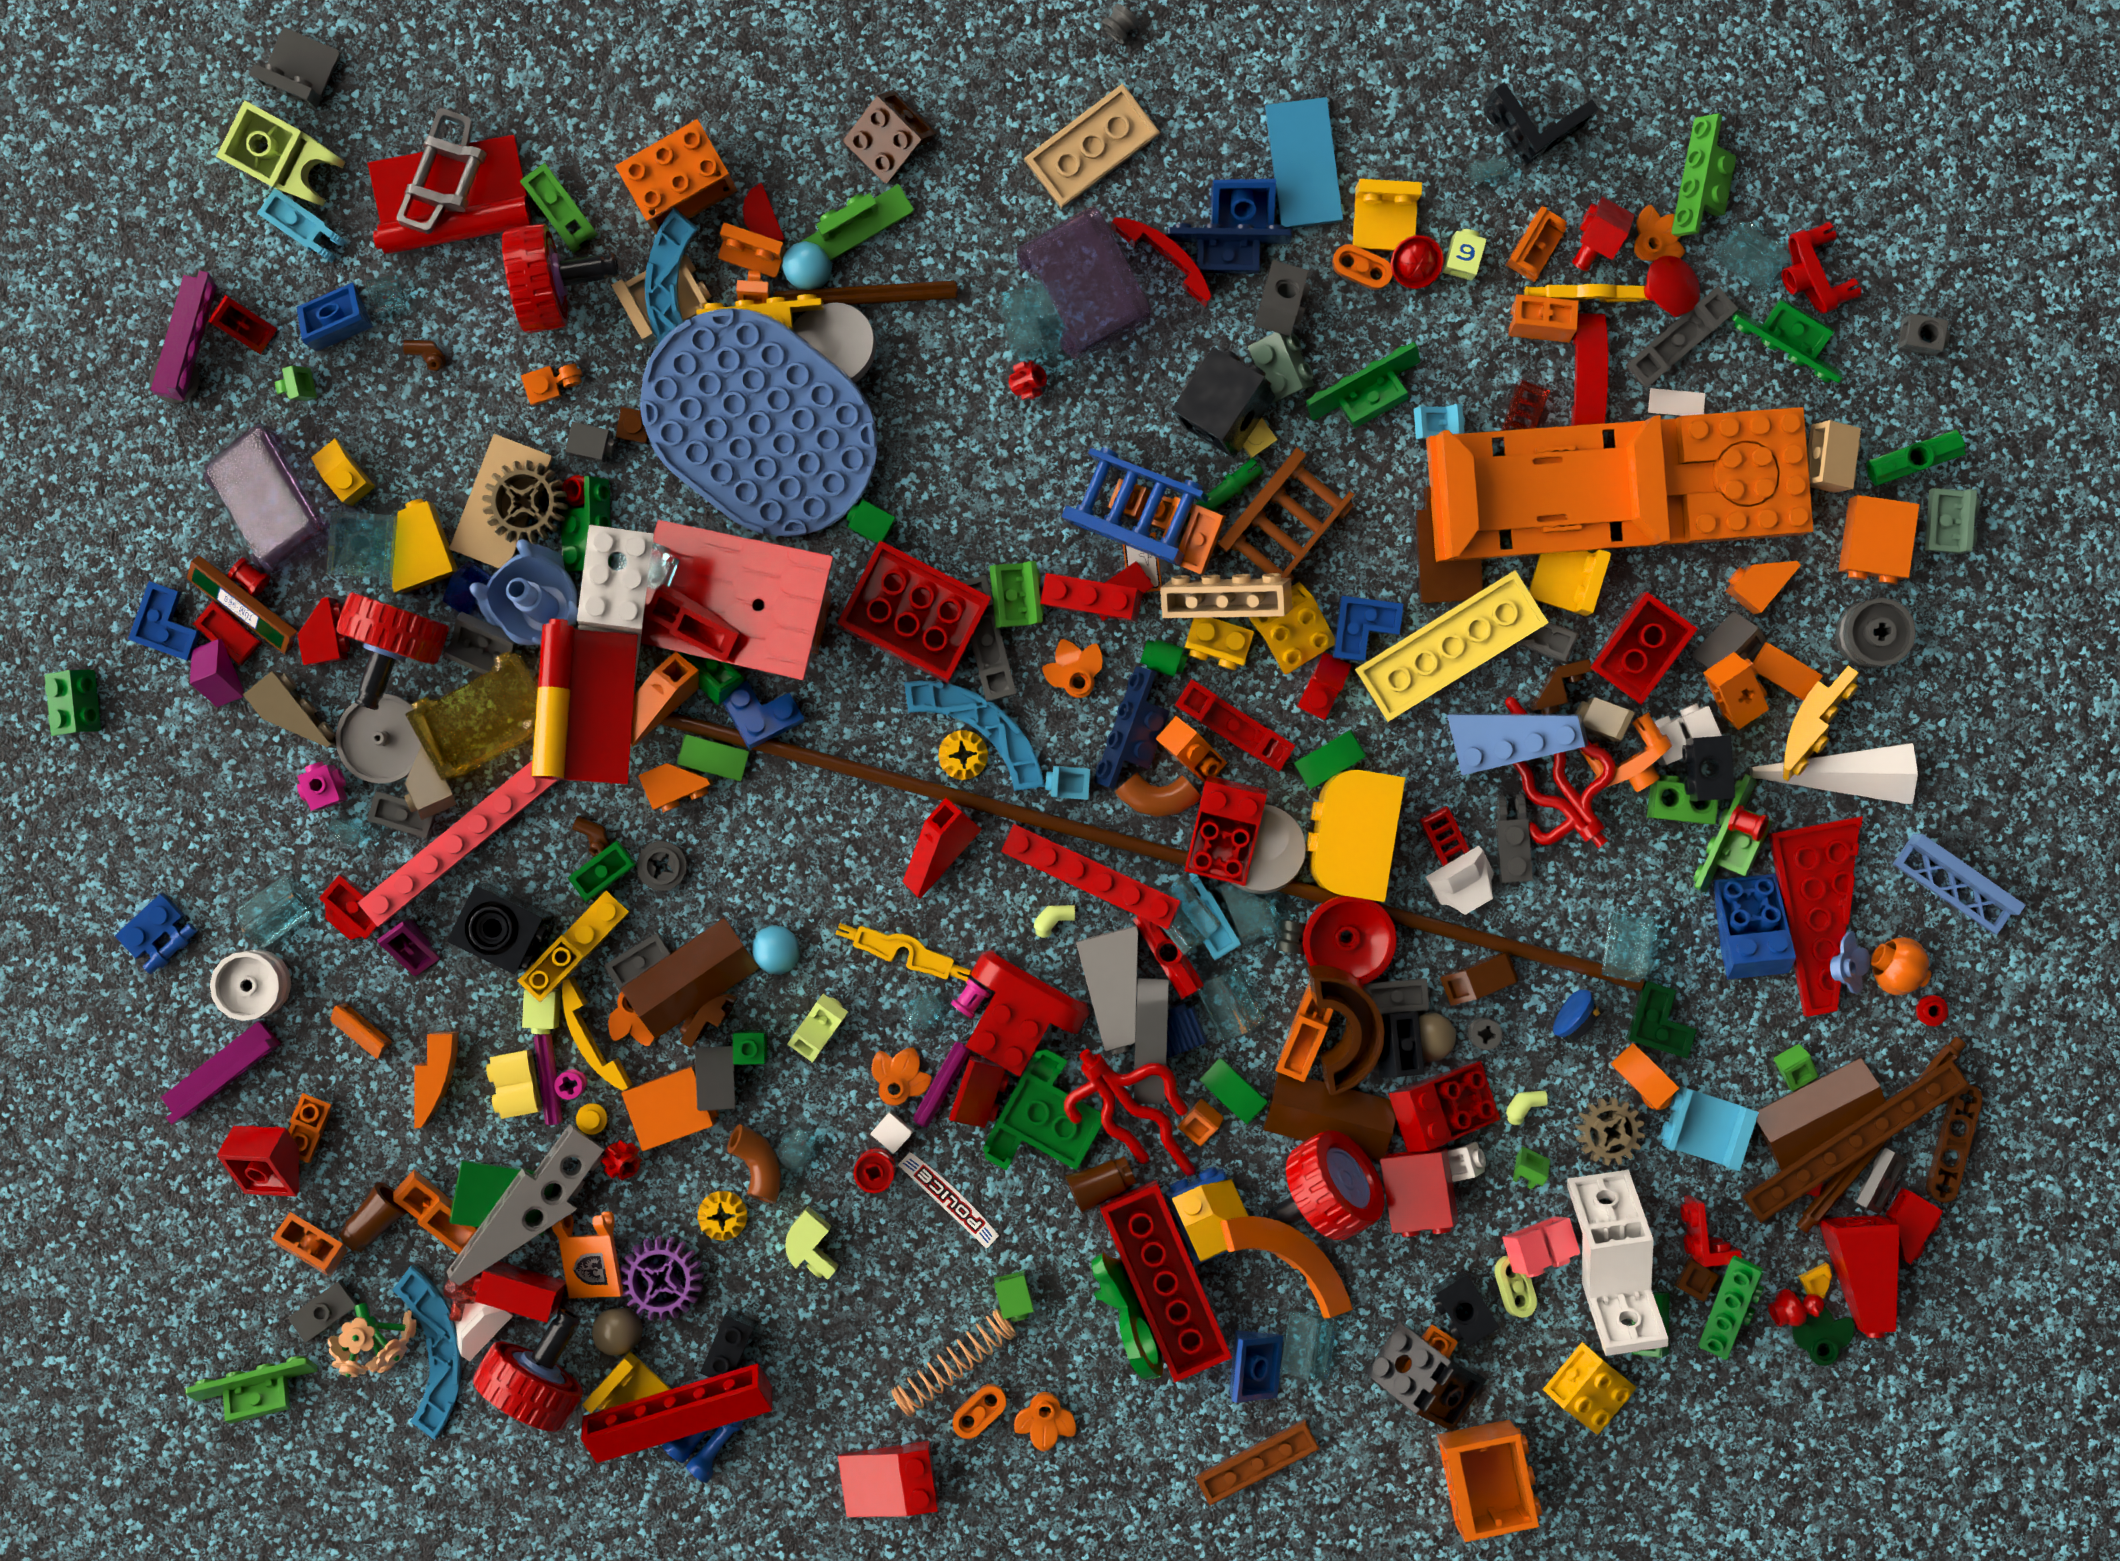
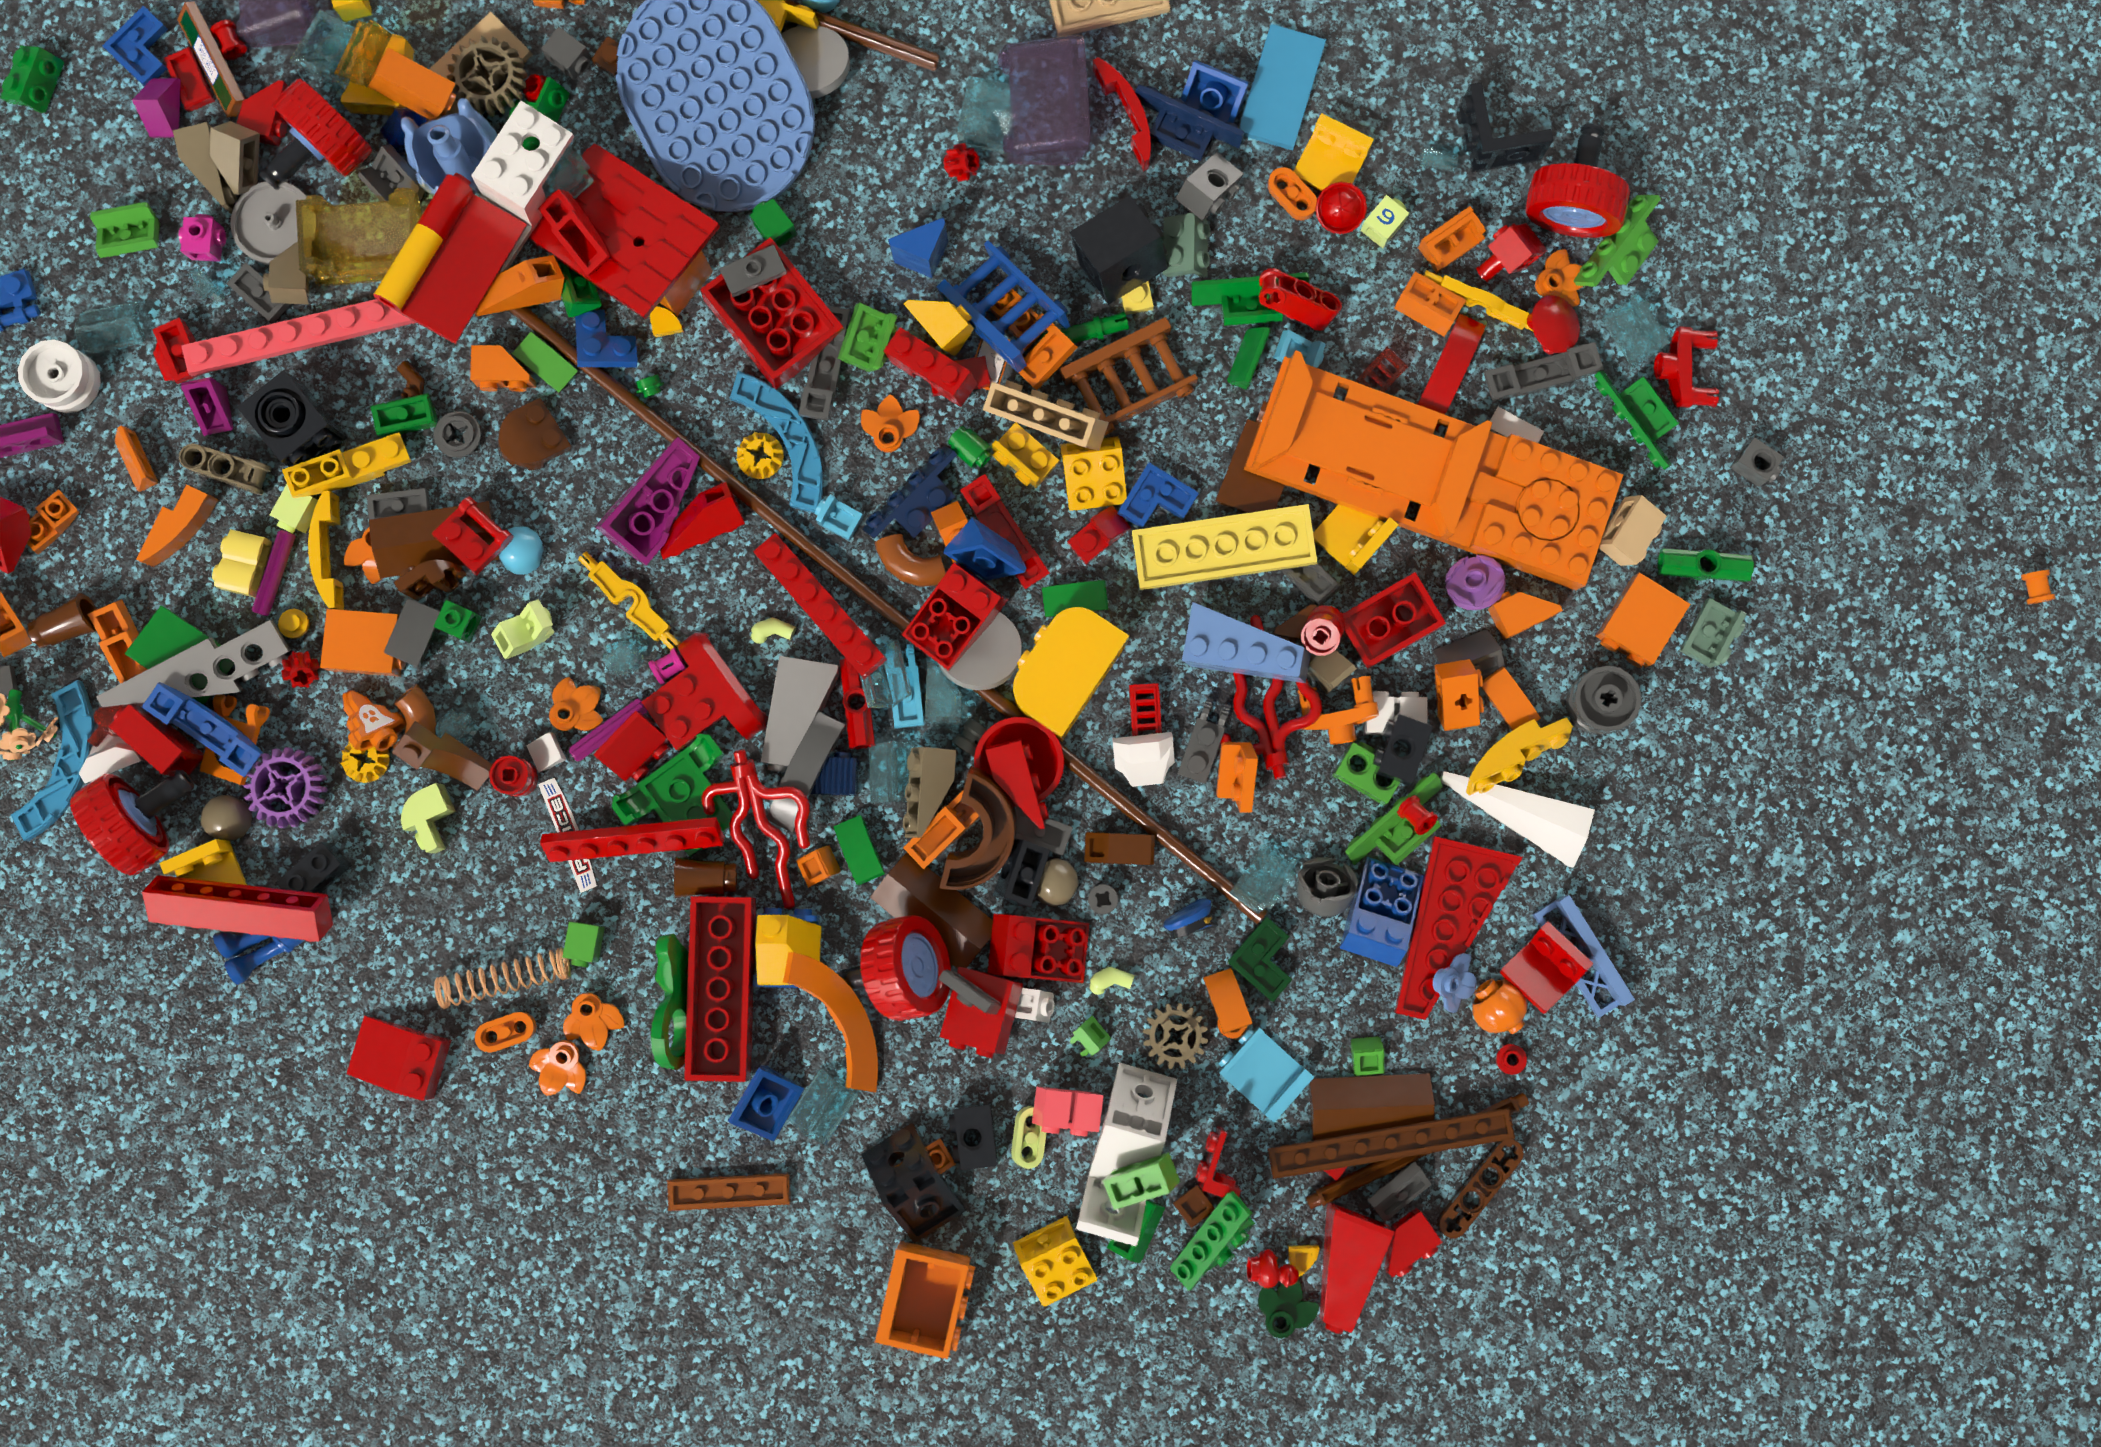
camera: 25 degrees right, 5 degrees down
(242, 811) = (125, 229): none -> bright green bracket
(316, 690) = (236, 155): none -> dark tan slope
(399, 538) = (363, 53): none -> clear yellow bracket
(462, 548) = (412, 85): none -> orange brick
(476, 998) = (243, 473): none -> dark tan piece
(563, 1257) = (205, 726): none -> blue slope
(569, 1093) = (286, 577): dark pink bush -> none
(713, 1180) = (371, 723): none -> orange rock
(726, 970) = (465, 543): none -> red plate
(734, 836) = (531, 436): none -> reddish brown slope
(800, 1180) = (443, 754): none -> reddish brown slope
(816, 667) = (664, 322): none -> yellow tile
(825, 735) = (649, 386): none -> green plate
(880, 582) = (753, 271): none -> dark grey plate
(880, 859) = (646, 511): none -> magenta wedge
(1017, 1179) = (632, 839): none -> red plate
(1030, 486) = (921, 247): none -> blue slope
(1058, 1367) = (594, 1025): none -> orange plate
(1085, 550) = (944, 322): none -> yellow slope
(1228, 755) = (984, 552): none -> blue slope
(1273, 1001) = (929, 781): none -> dark tan slope
(1352, 958) = (1012, 773): none -> red slope
(1391, 448) = (1248, 357): none -> green slope
(1405, 1181) = (969, 993): none -> dark grey plate
(1416, 372) = (1298, 299): none -> red piece
(1562, 859) = (1237, 774): none -> orange bracket
(1586, 689) = (1323, 630): none -> red wheel
(1647, 151) = (1578, 195): none -> red wheel
(1647, 1285) = (1141, 1181): none -> bright green brick
(1691, 928) = (1325, 887): none -> dark grey cylinder
(1705, 573) = (1475, 582): none -> medium lavender tile
(1930, 912) = (1546, 968): none -> red bracket

